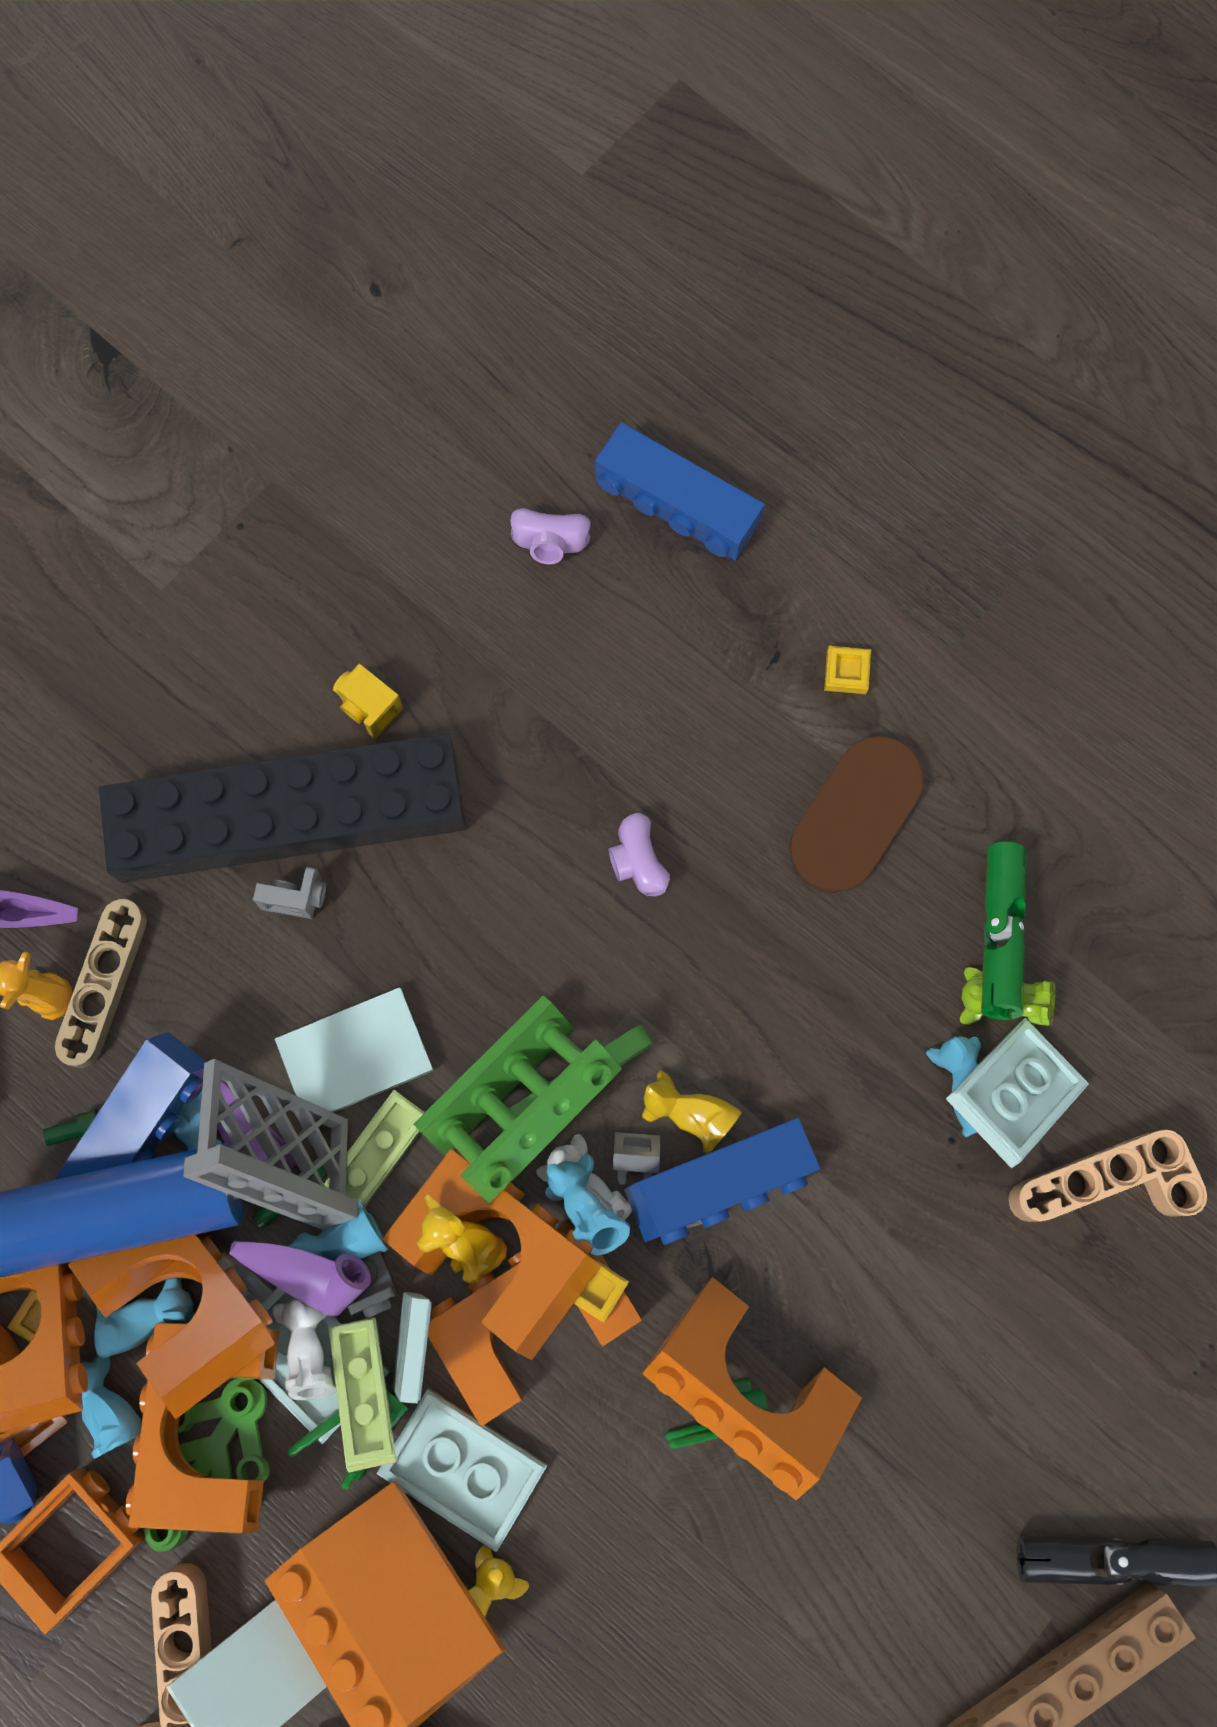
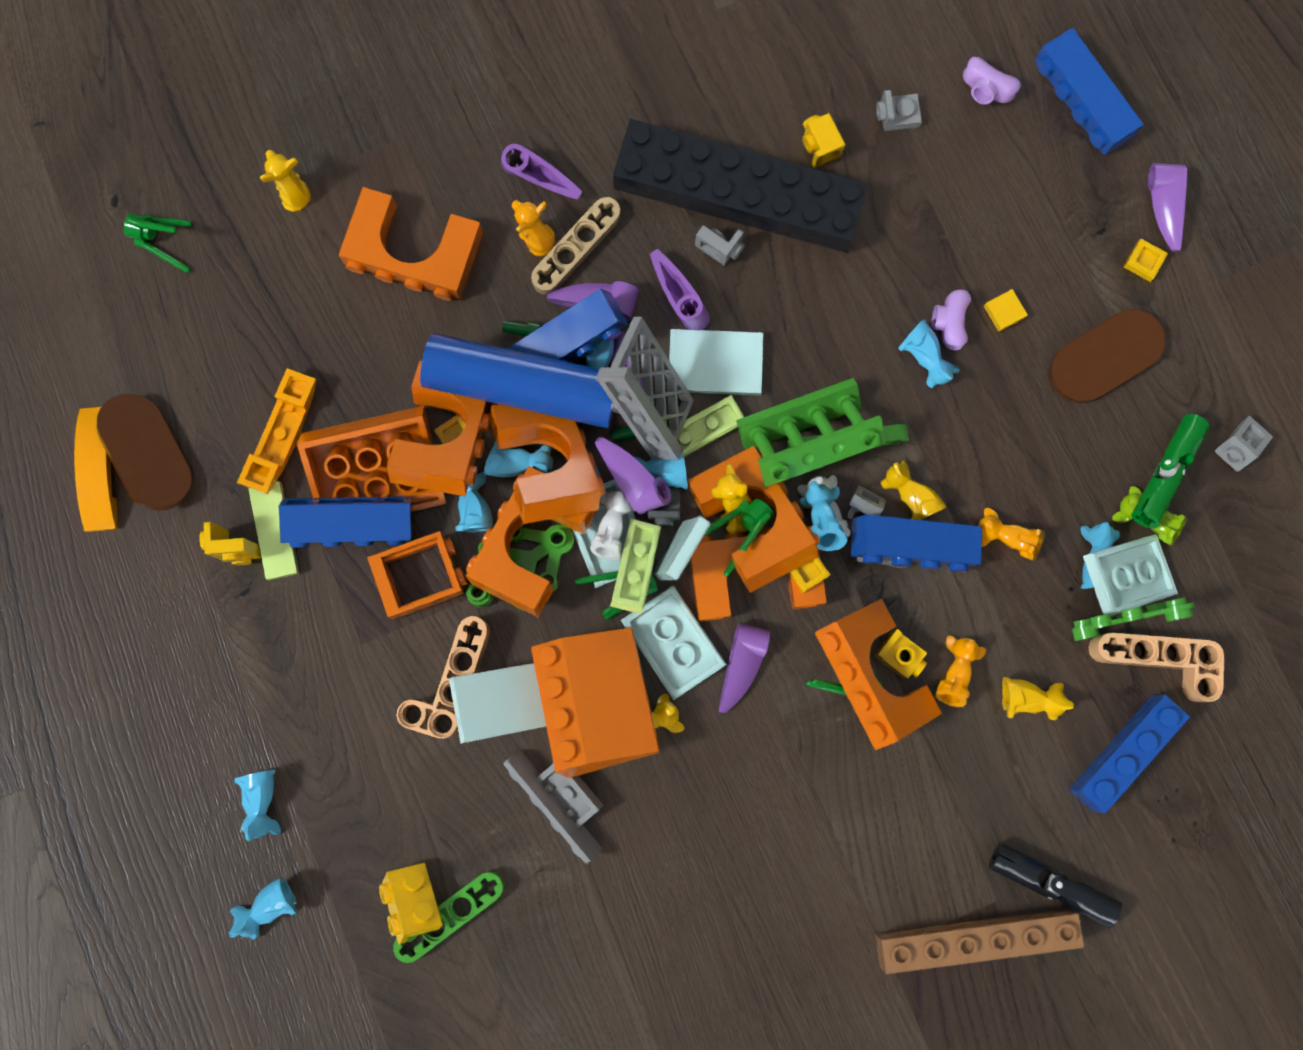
camera: 25 degrees right, 5 degrees up
(188, 1024) = (623, 293): none -> medium lavender piece
(266, 987) = (680, 293): none -> medium lavender piece
(451, 619) = (899, 111): none -> light grey bracket
(493, 1254) = (753, 518): none -> green plant
(570, 1454) = (745, 658): none -> medium lavender piece
(621, 912) = (926, 349): none -> medium azure animal
(701, 814) = (1005, 310): none -> yellow tile
(756, 1335) = (890, 651): none -> yellow brick
(837, 577) = (1168, 193): none -> medium lavender piece
(846, 1108) = (1016, 537): none -> light orange animal
(862, 1351) = (954, 688): none -> light orange animal
(965, 1319) = (1027, 697): none -> yellow animal
(1079, 849) = (1244, 444): none -> light grey bracket
(1094, 1121) = (1172, 609): none -> bright green plant
(1128, 1332) = (1129, 753): none -> blue brick

